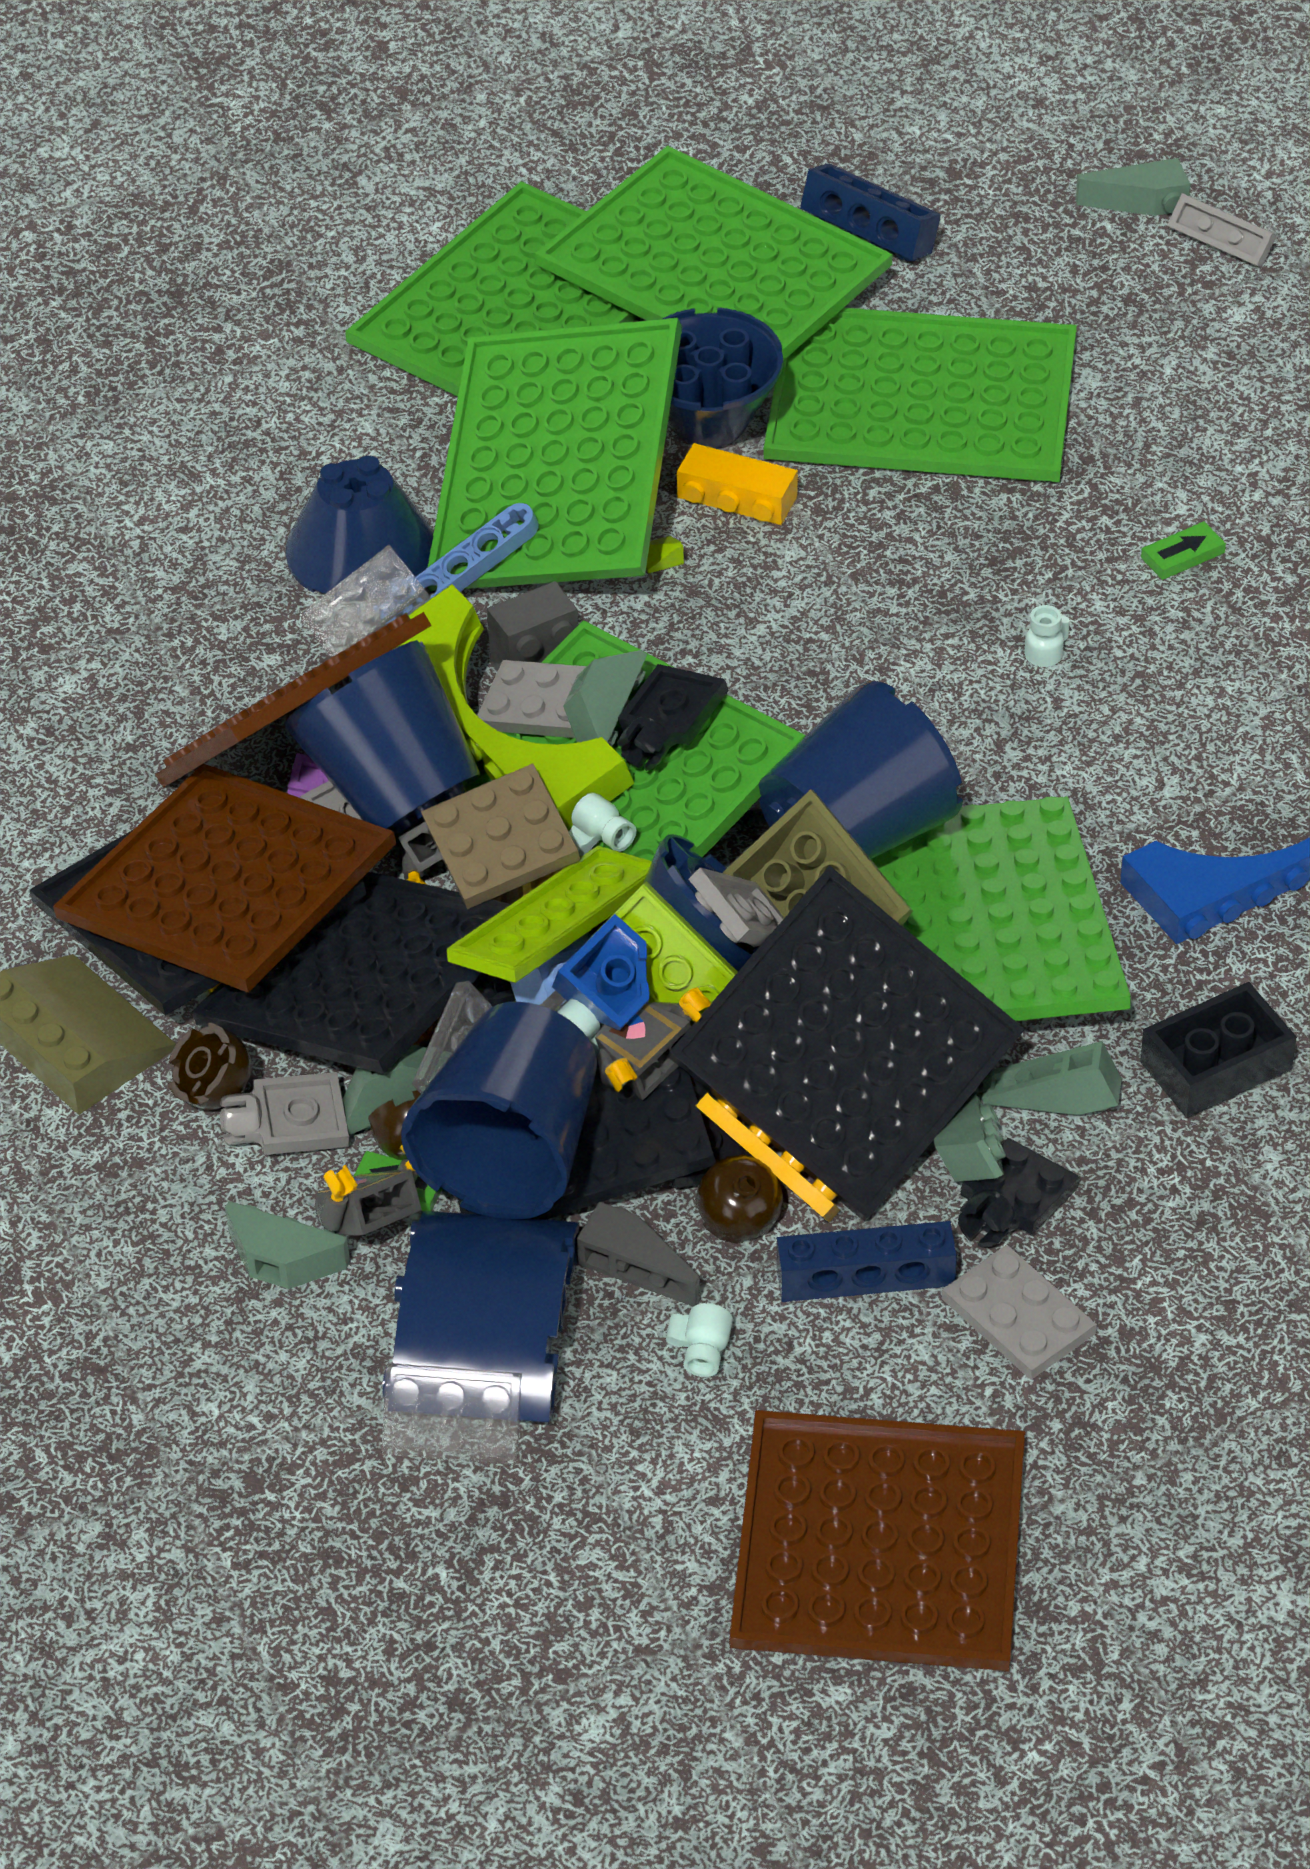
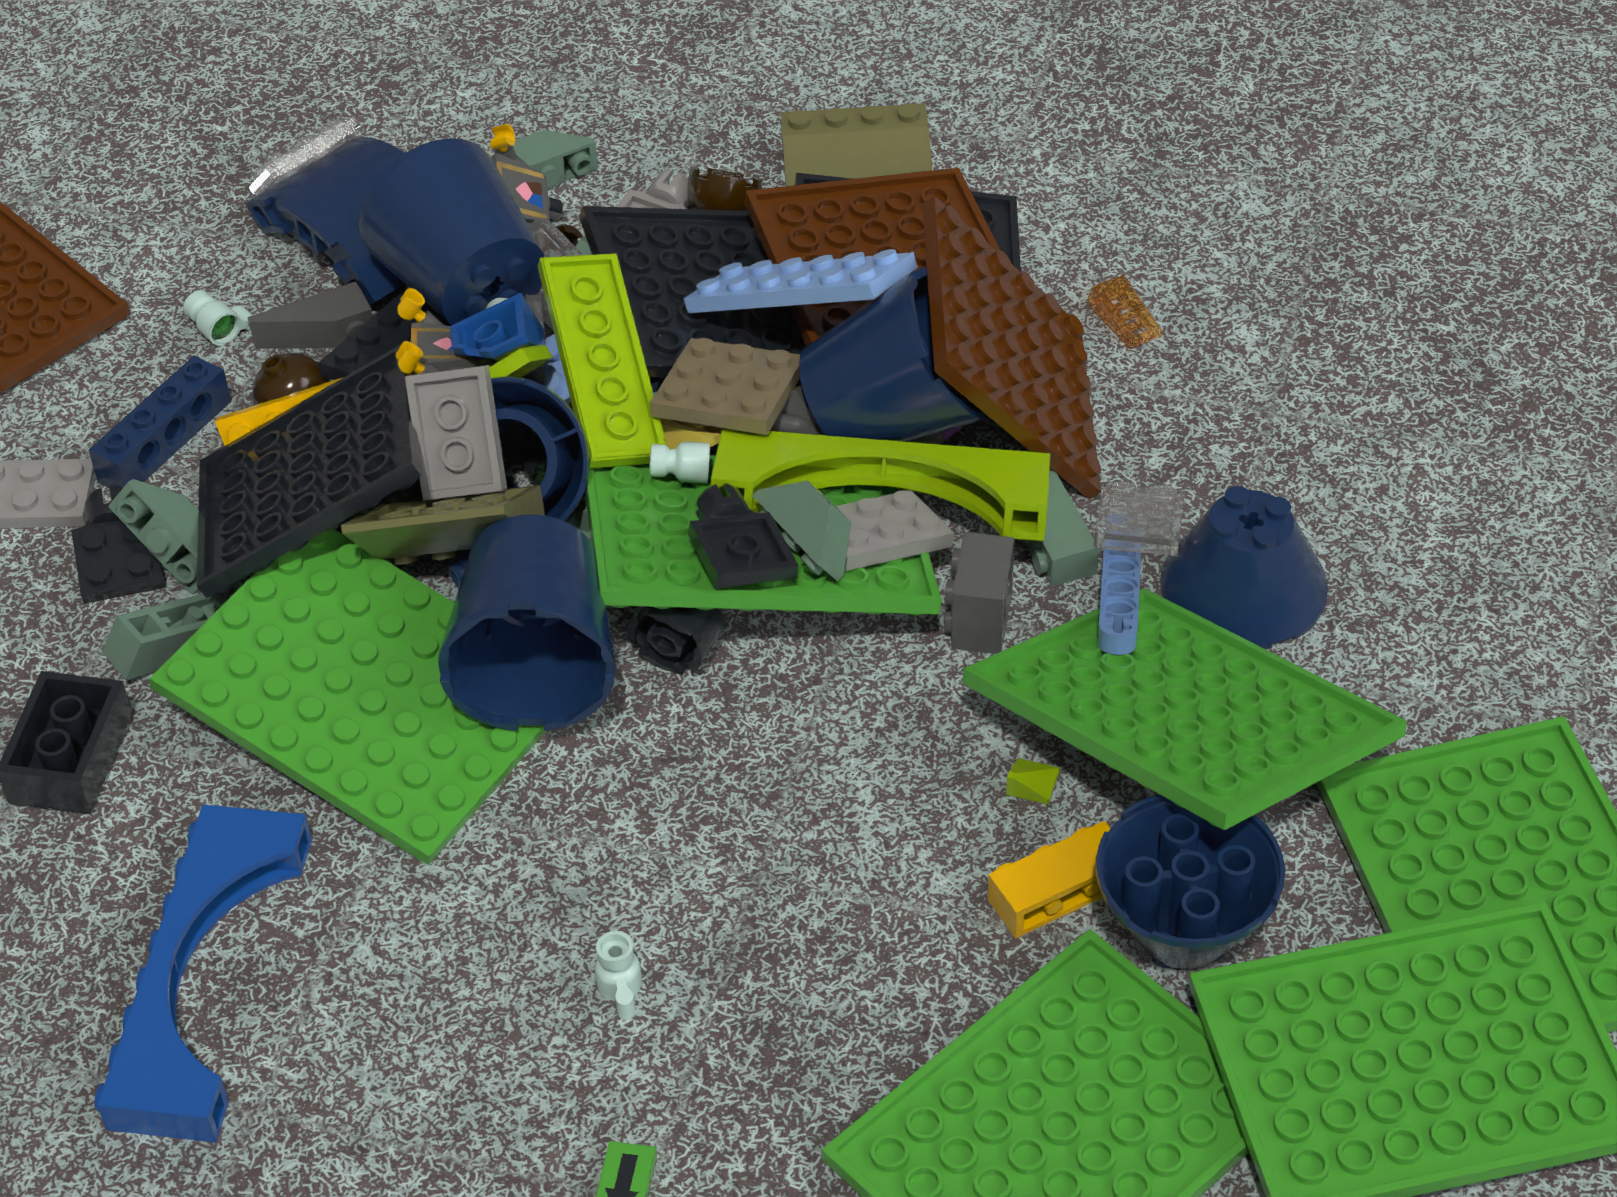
camera: 130 degrees right, 0 degrees up
(109, 769) = (1101, 303): none -> clear orange slope
(360, 831) = (801, 282): none -> light blue plate

